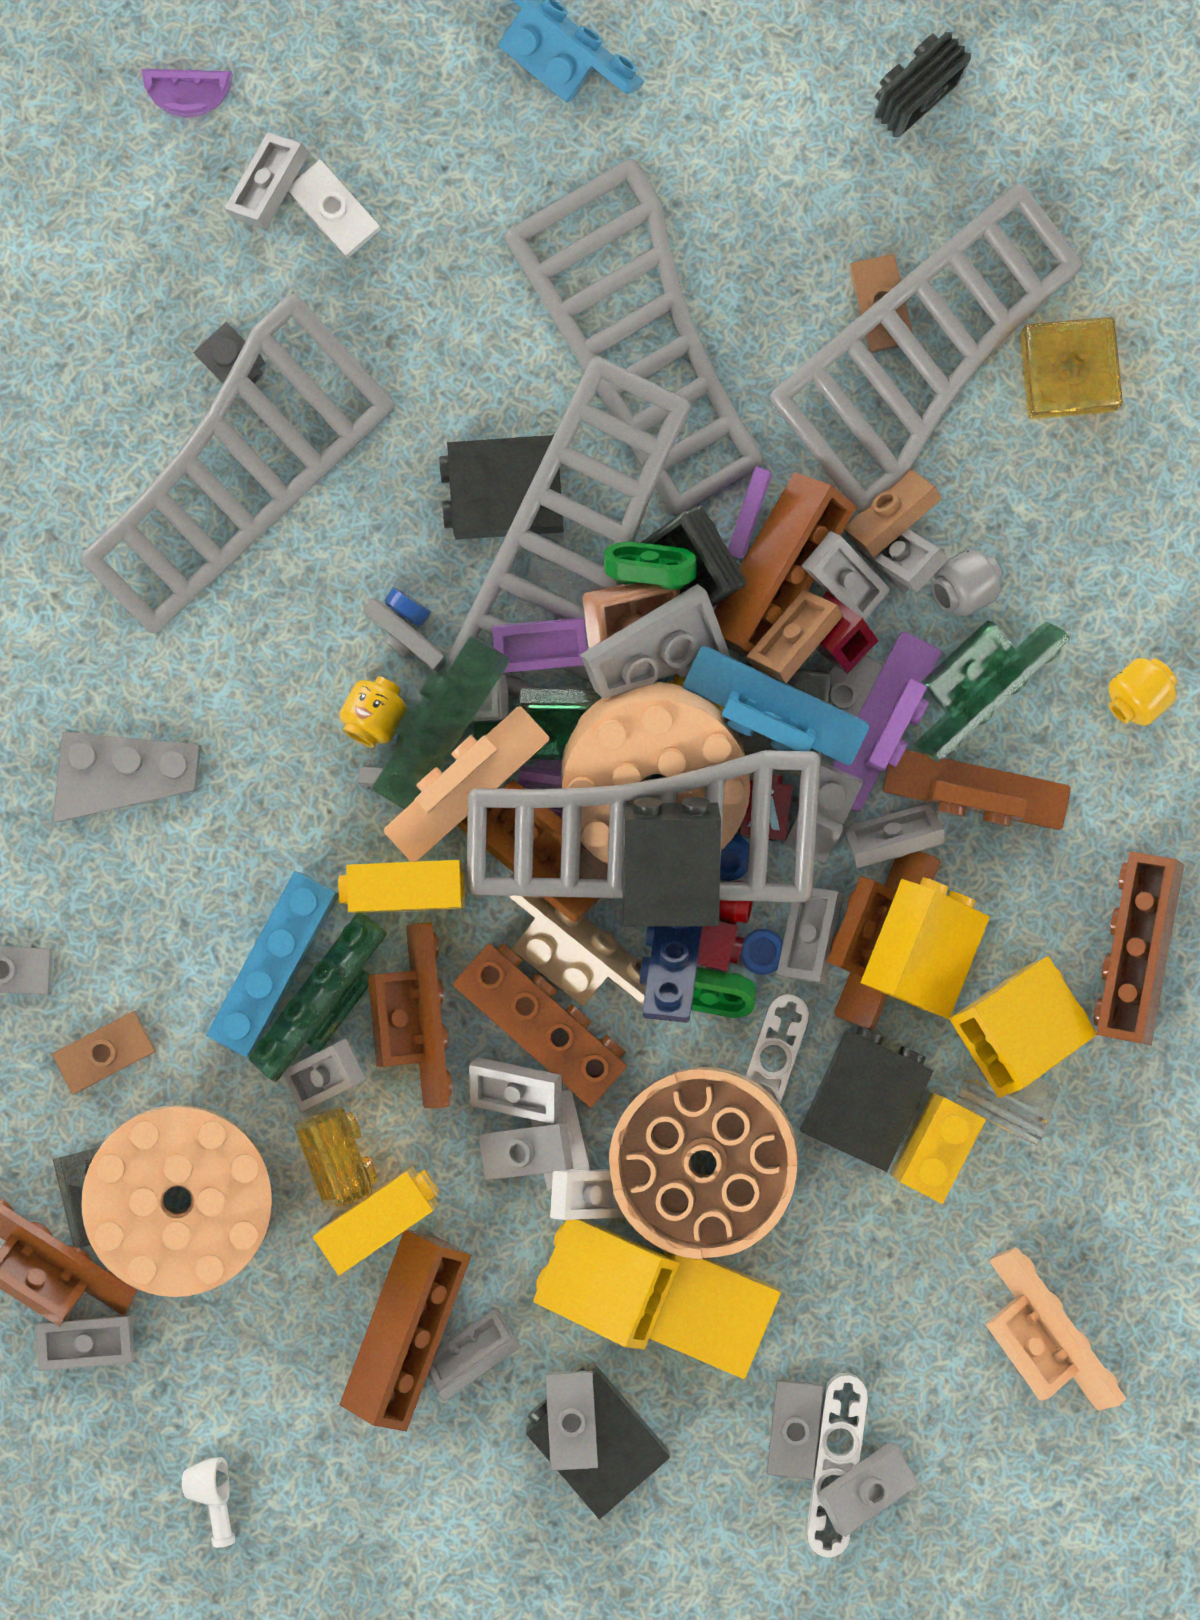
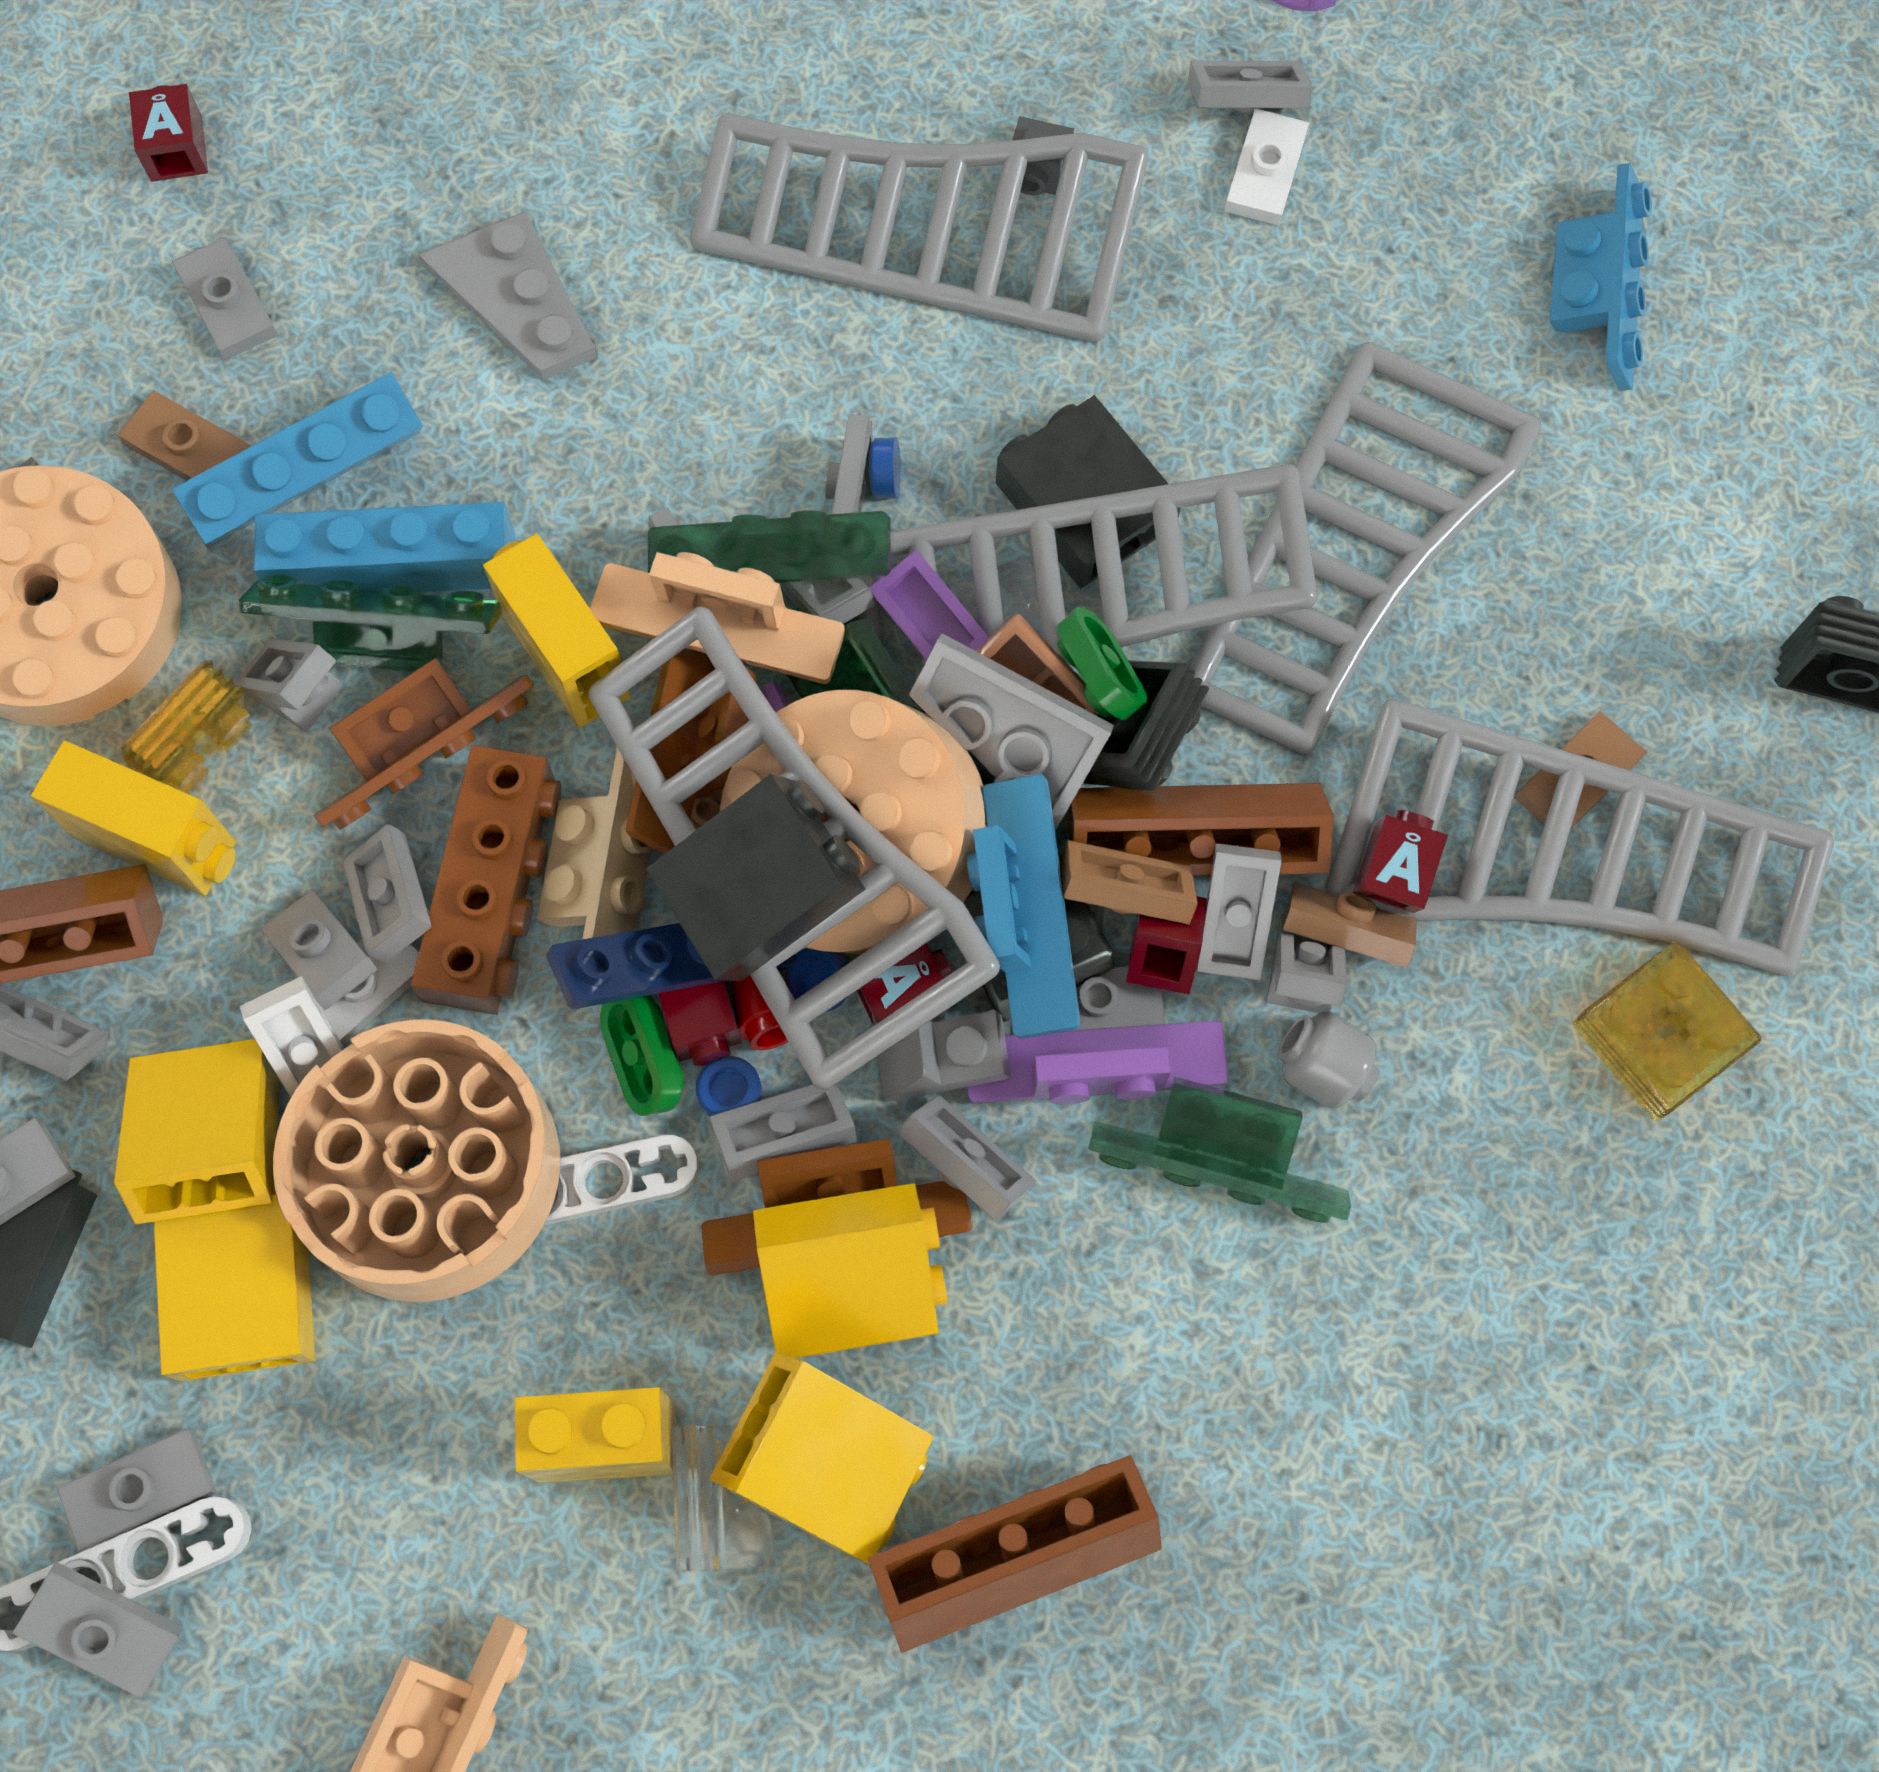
camera: 55 degrees right, 15 degrees down
(173, 986) = (298, 459): none -> dark azure brick
(372, 711) = (742, 488): yellow head -> none
(749, 512) = (1241, 761): medium lavender tile -> none
(867, 1098) = (616, 1319): pearl dark grey brick -> none
(878, 460) = (1401, 861): none -> dark red brick
(978, 789) = (1090, 1231): dark orange bracket -> none
(1142, 691) = (1342, 1356): yellow head -> none

